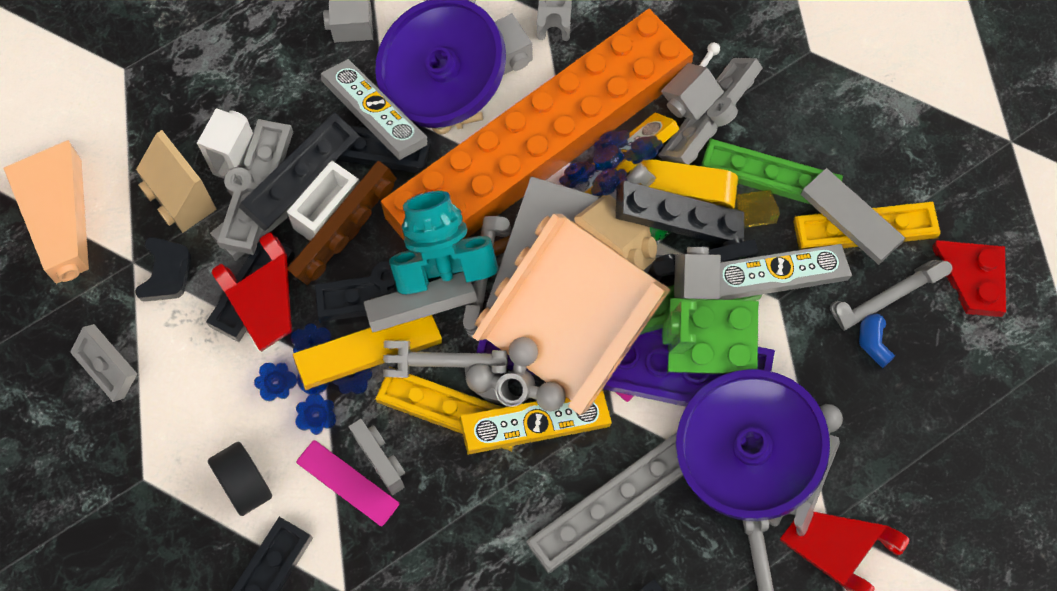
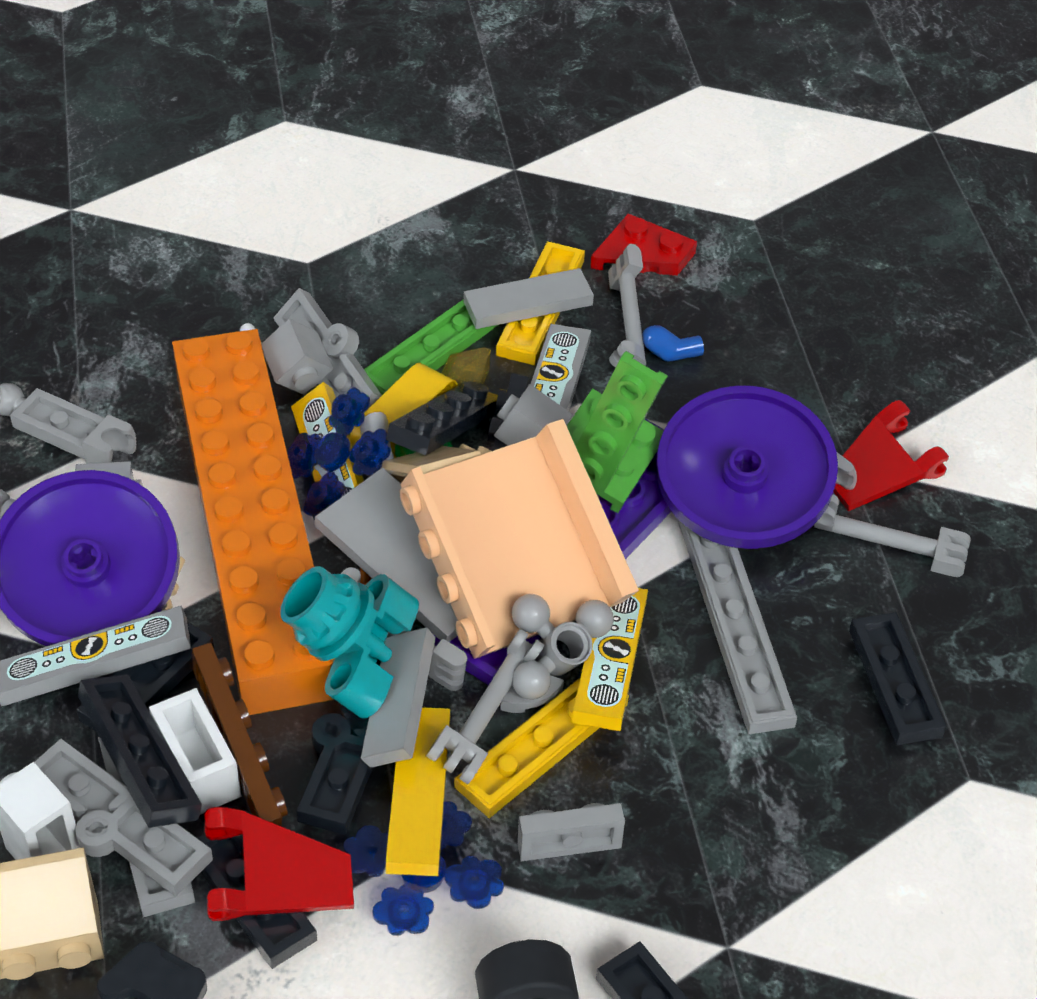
camera: 70 degrees left, 20 degrees down
(347, 483) = (579, 890): dark pink sticker -> none

